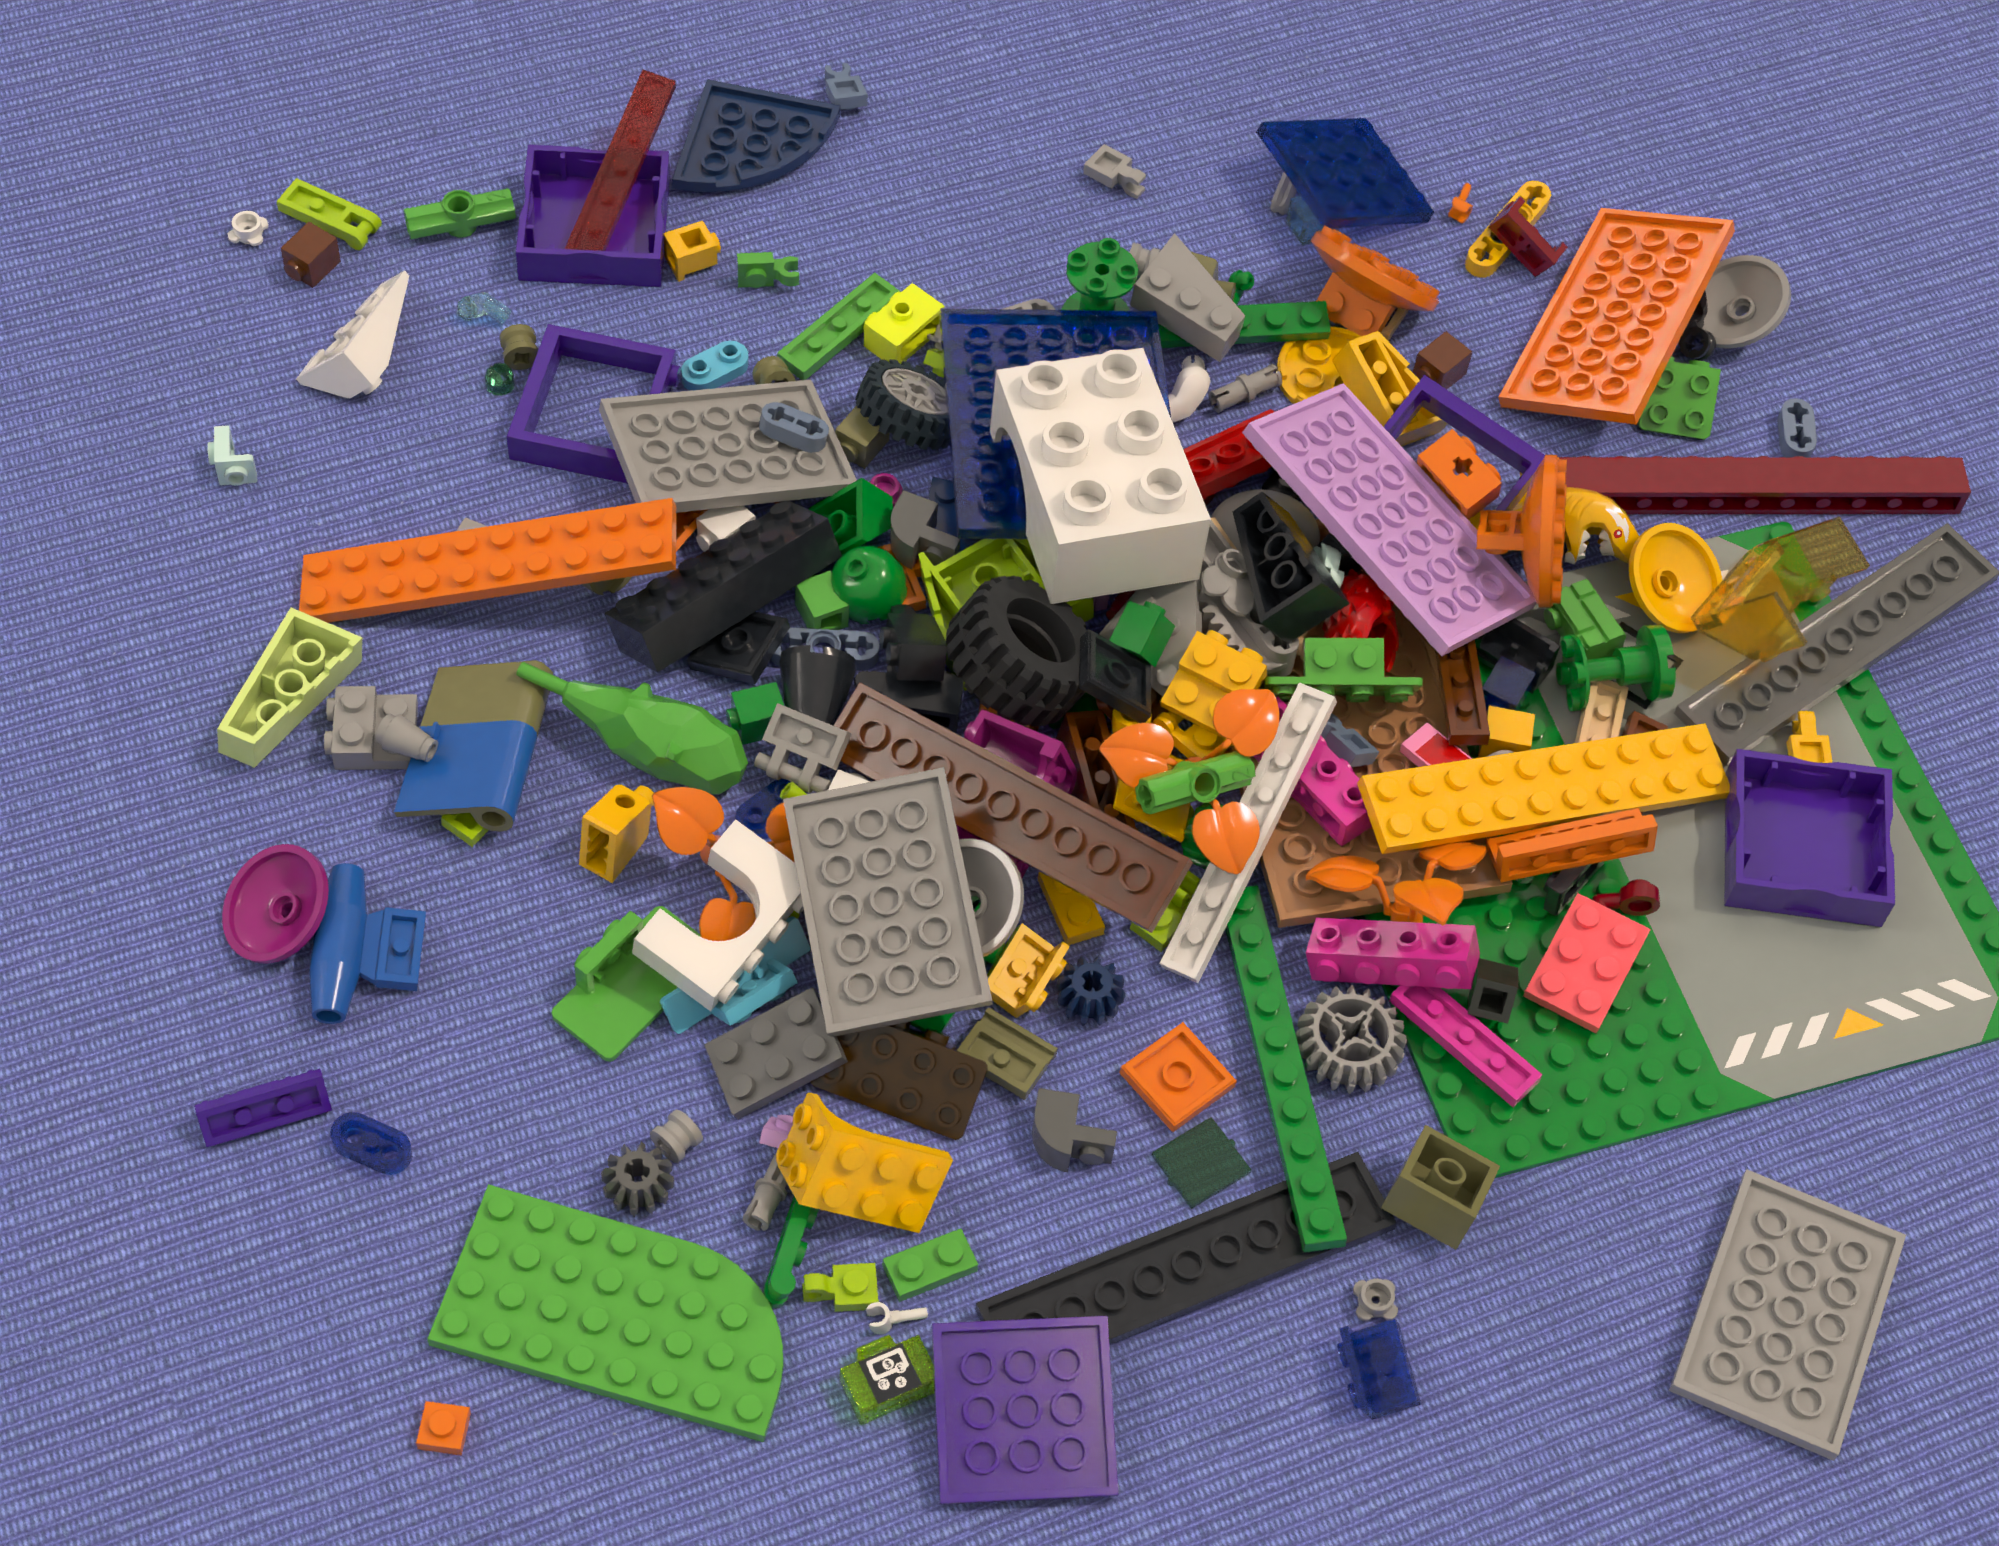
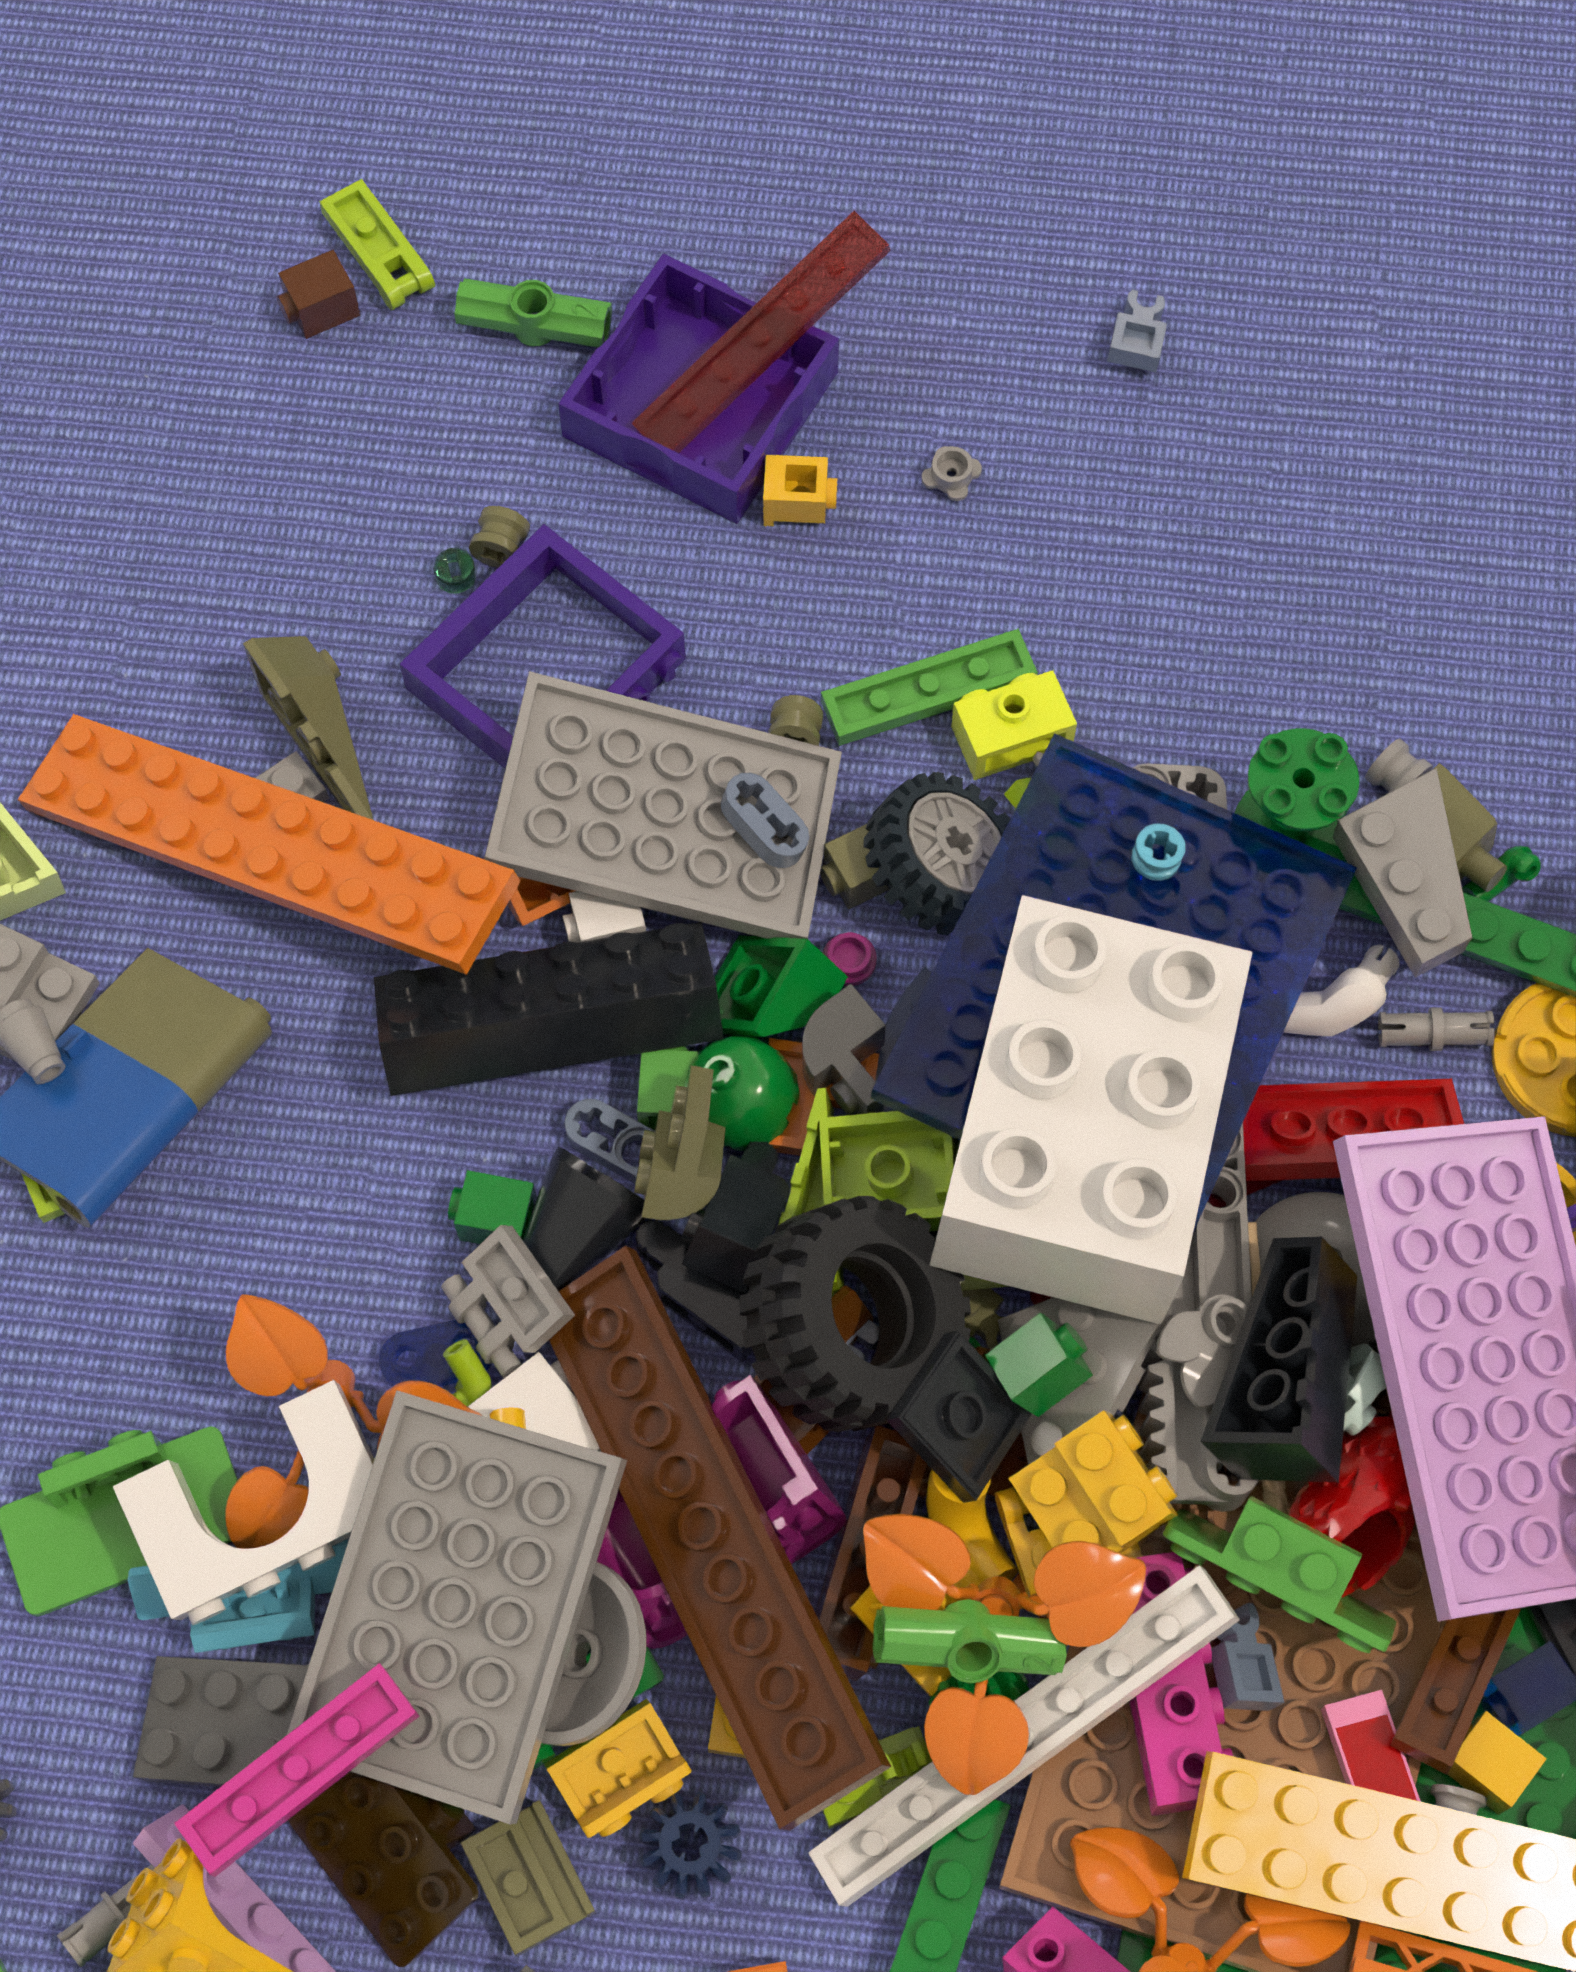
camera: 35 degrees right, 10 degrees up
(230, 468) = (55, 536): light aqua bracket -> none
(247, 228) = (266, 213): white plate -> none
(361, 346) = (292, 465): white wedge -> none
(460, 488) = (307, 702): none -> olive wedge
(481, 305) = (488, 456): clear light blue arm -> none
(615, 830) = (203, 1291): yellow torso -> none
(653, 731) = (338, 1179): bright green piece -> none
(676, 1136) = (44, 1772): light grey wheel -> none
(718, 364) = (736, 676): medium azure plate -> none
(742, 649) = (530, 1108): black tile -> none
(749, 137) = (970, 355): dark blue plate -> none
(761, 269) = (873, 559): bright green plate -> none
(778, 205) = (954, 460): none -> light grey plate
(850, 1027) = (296, 1770): none -> dark pink plate
(863, 623) = (684, 1155): none -> olive brick
(1050, 341) = (1173, 850): none -> medium azure bush
(1114, 167) = (1441, 607): light grey plate -> none

